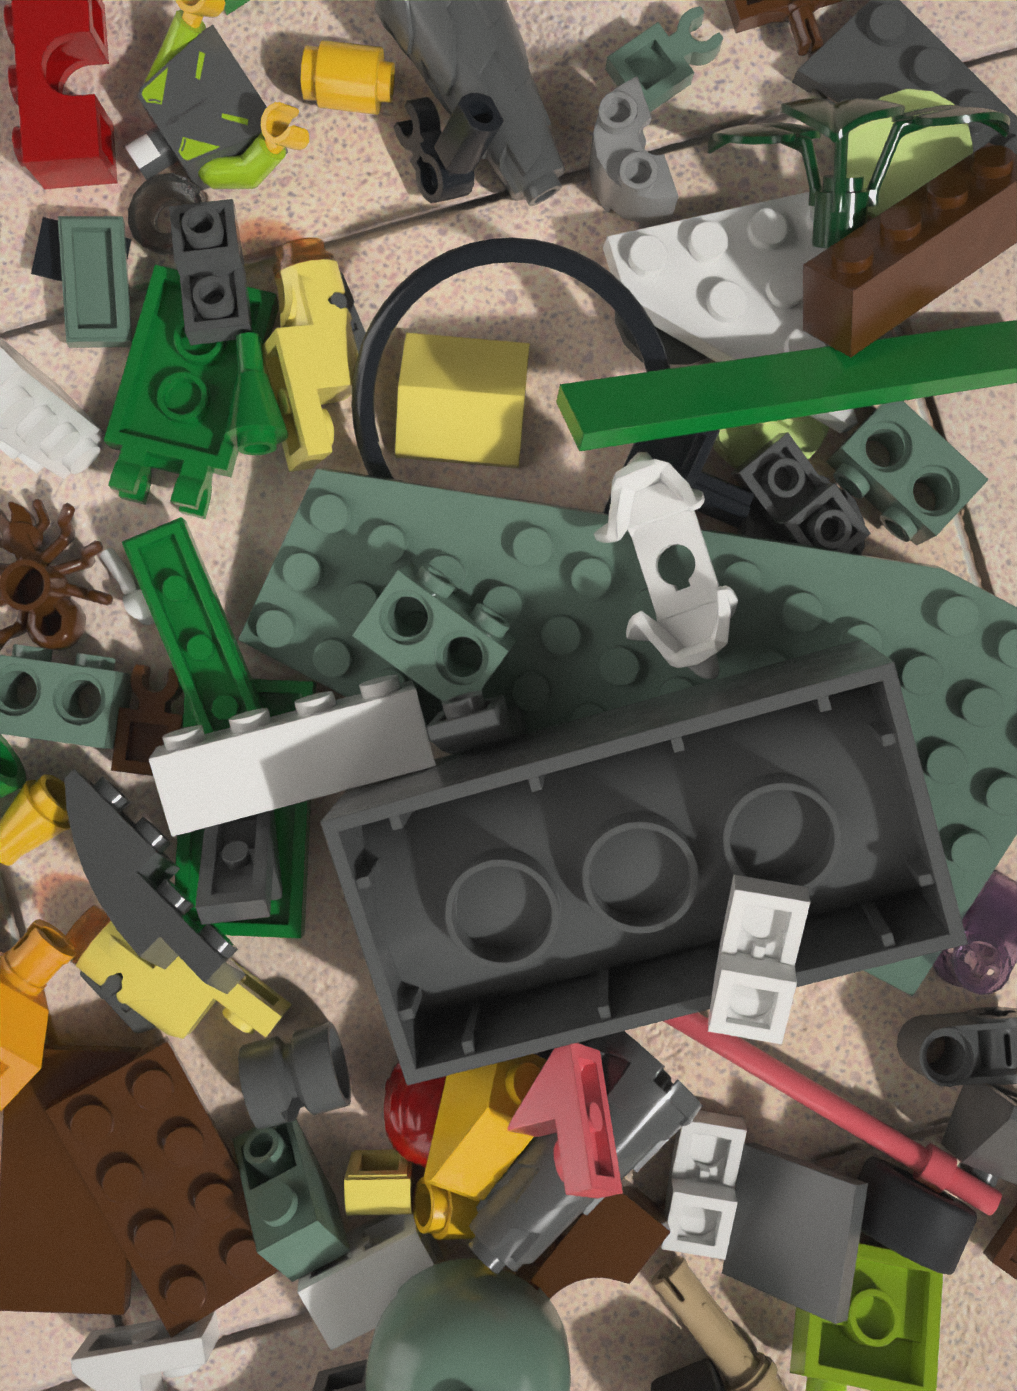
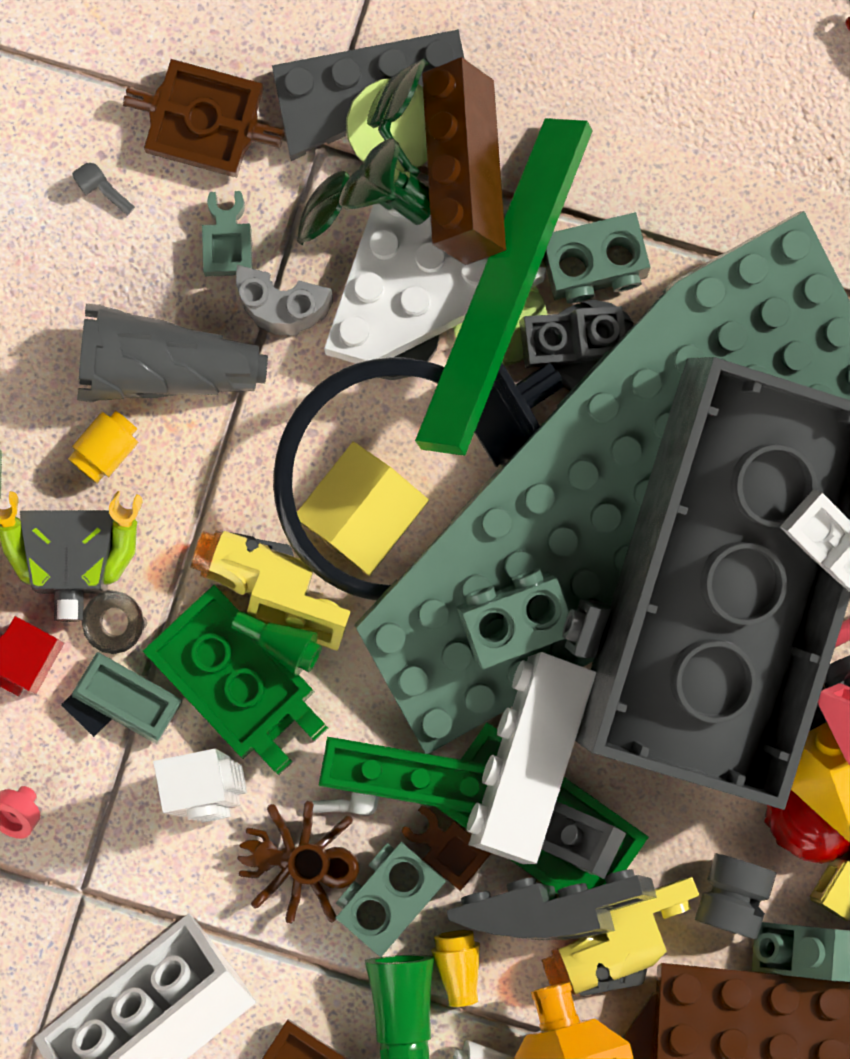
camera: 55 degrees left, 5 degrees down
(210, 271) = (176, 615): dark grey slope -> none
(448, 158) = (201, 422): black bar -> none
(659, 513) = (530, 432): white piece -> none

